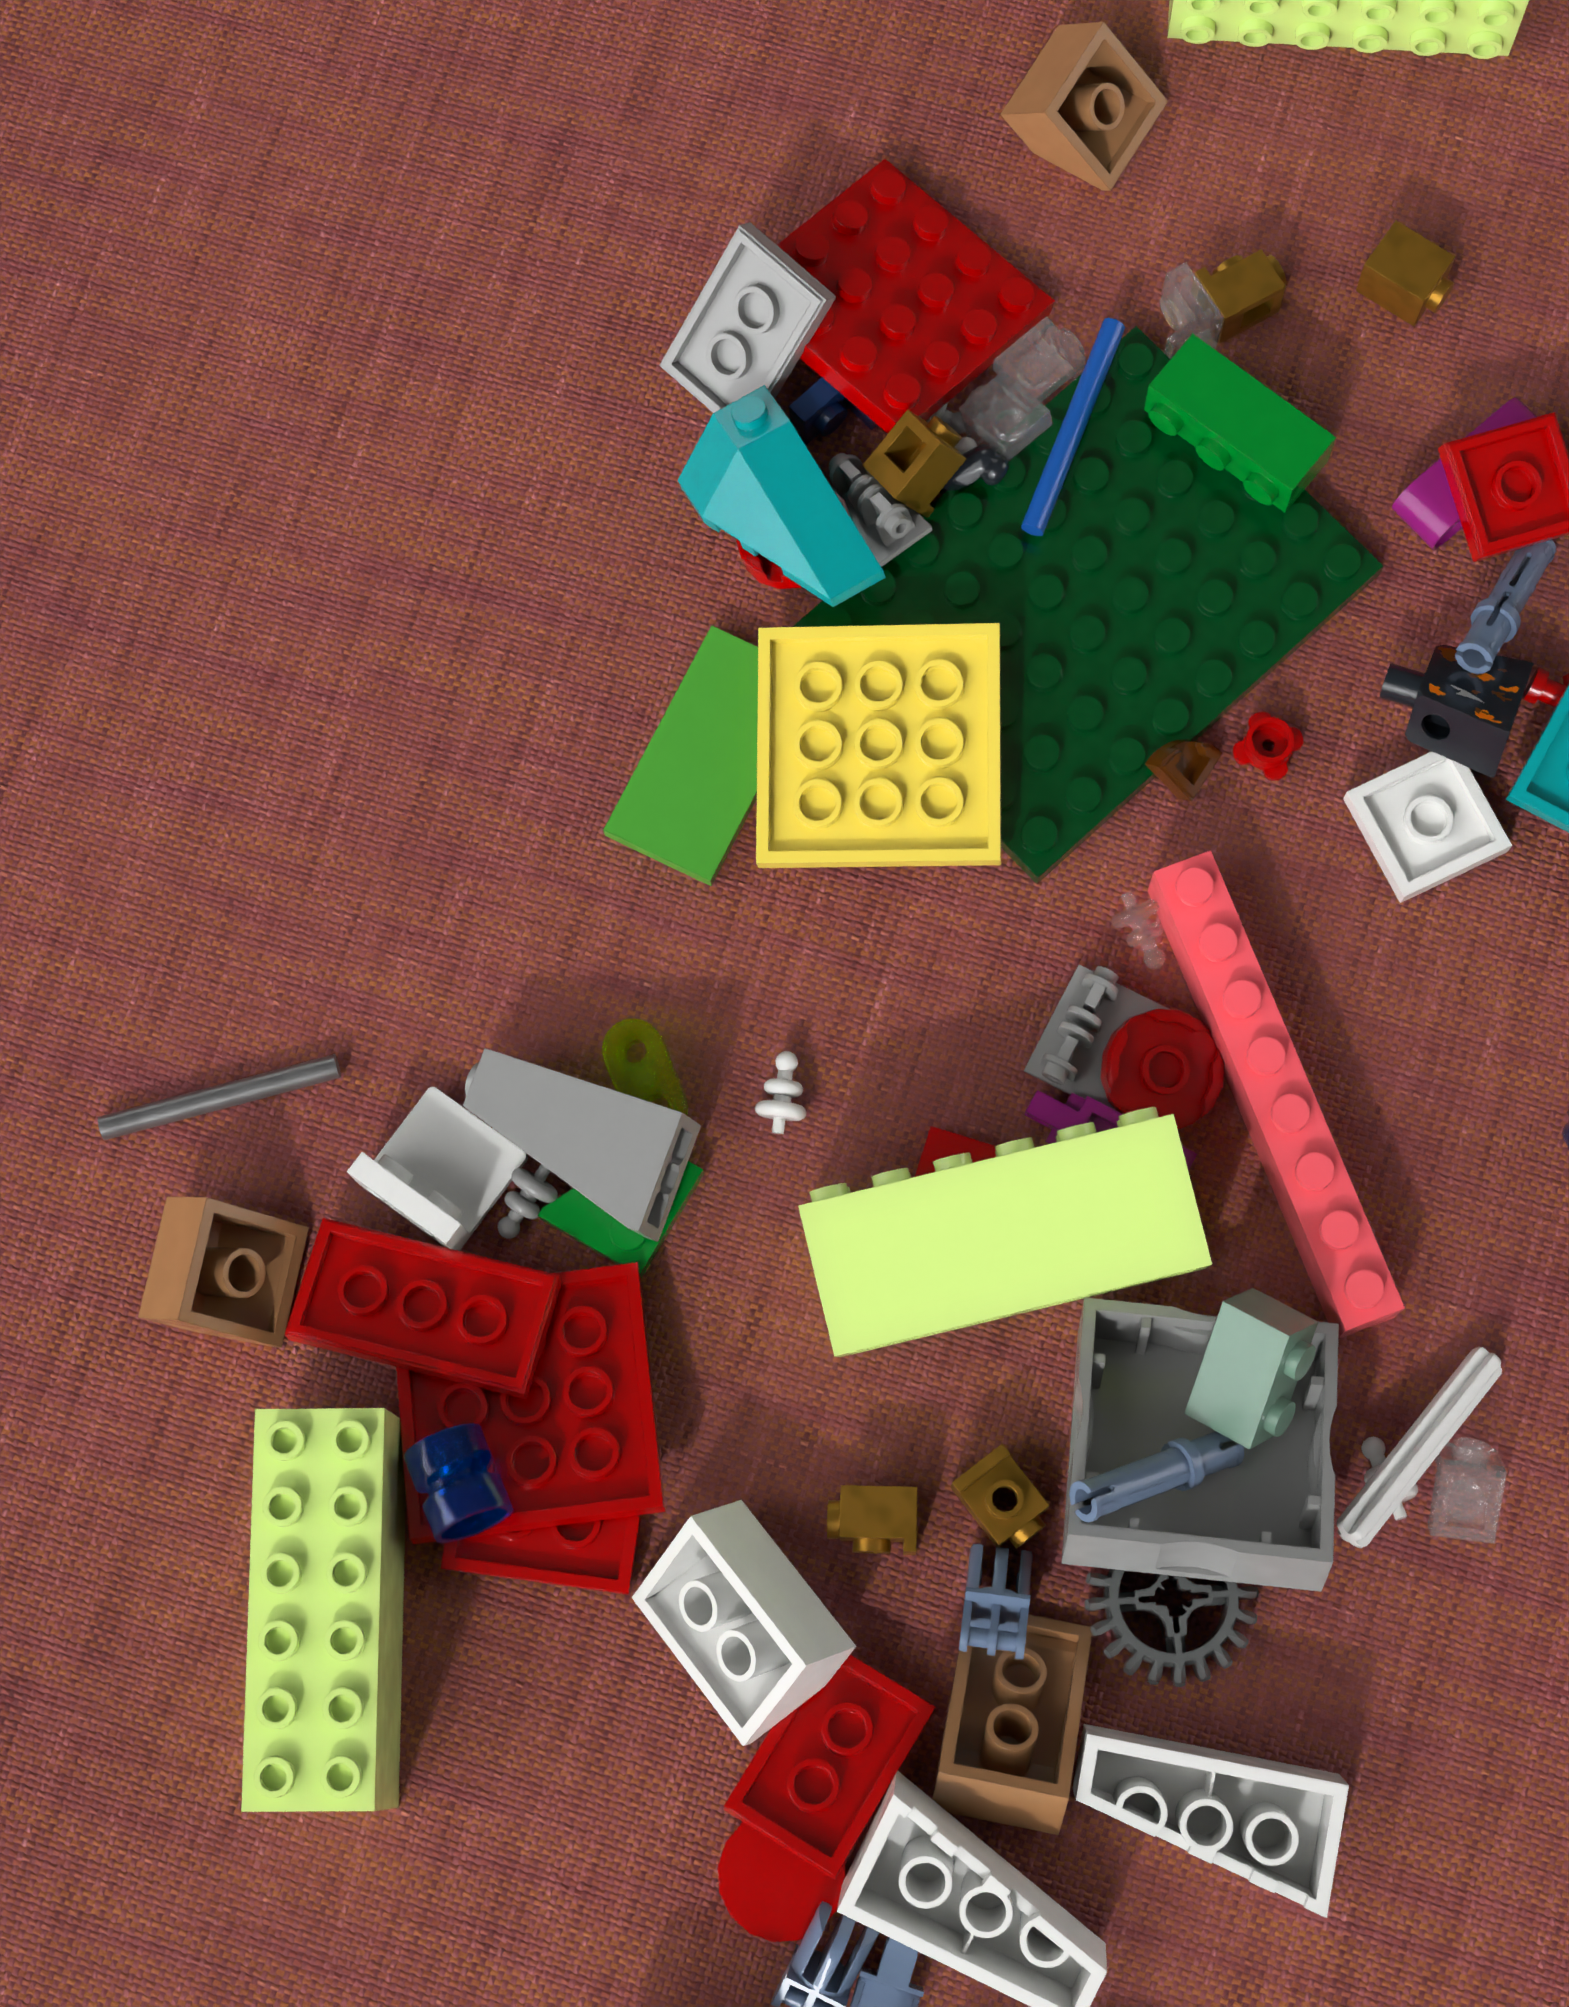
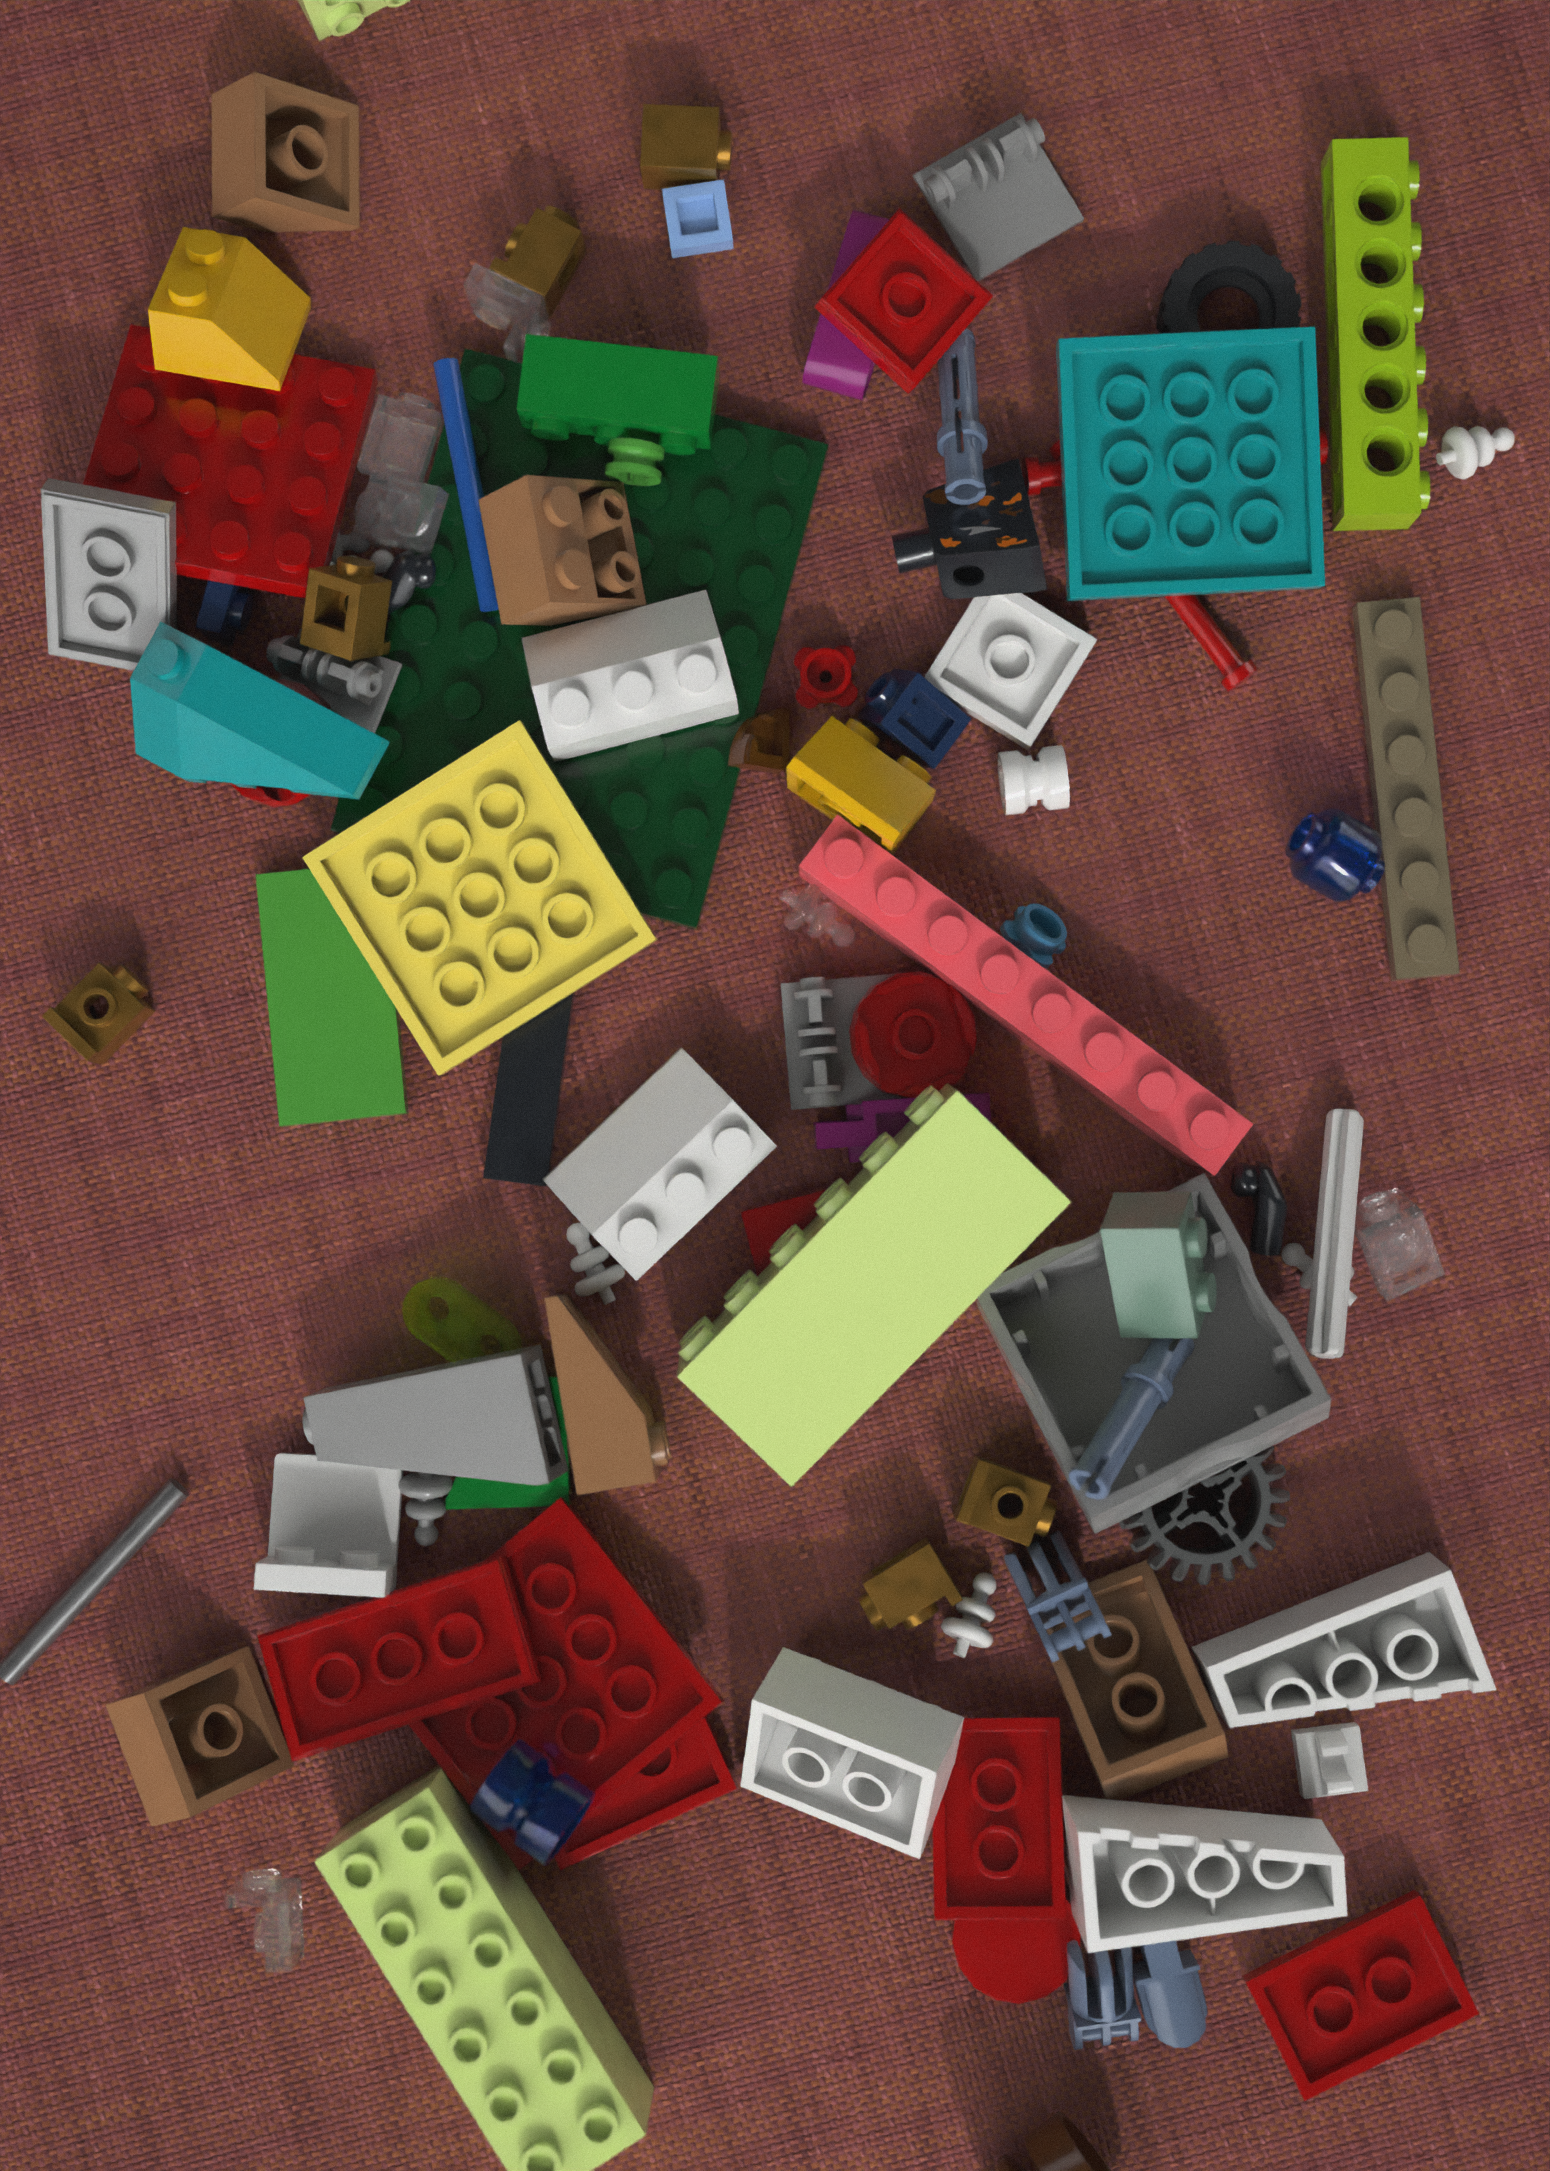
camera: 30 degrees left, 10 degrees up
(186, 1466) = (280, 1925): none -> clear bracket
(519, 676) = (100, 1038): none -> pearl gold brick
(714, 1220) = (604, 1413): none -> medium nougat slope
(817, 930) = (529, 1097): none -> black tile
(890, 1041) = (659, 1163): none -> white slope
(918, 1575) = (974, 1611): none -> white hair
(965, 187) = (225, 312): none -> yellow slope
(1108, 647) = (629, 676): none -> white slope
(1115, 516) = (561, 550): none -> medium nougat slope
(1143, 1899) = (1329, 1760): none -> white tile
(1217, 483) = (634, 461): none -> bright green bush
(1242, 831) = (850, 777): none -> yellow slope
(1317, 1049) = (1036, 933): none -> dark azure plate
(1322, 817) = (913, 715): none -> dark blue bracket
(1377, 1393) = (1269, 1204): none -> black arm
(1385, 334) = (697, 218): none -> light blue plate
(1387, 925) = (1028, 780): none -> white wheel

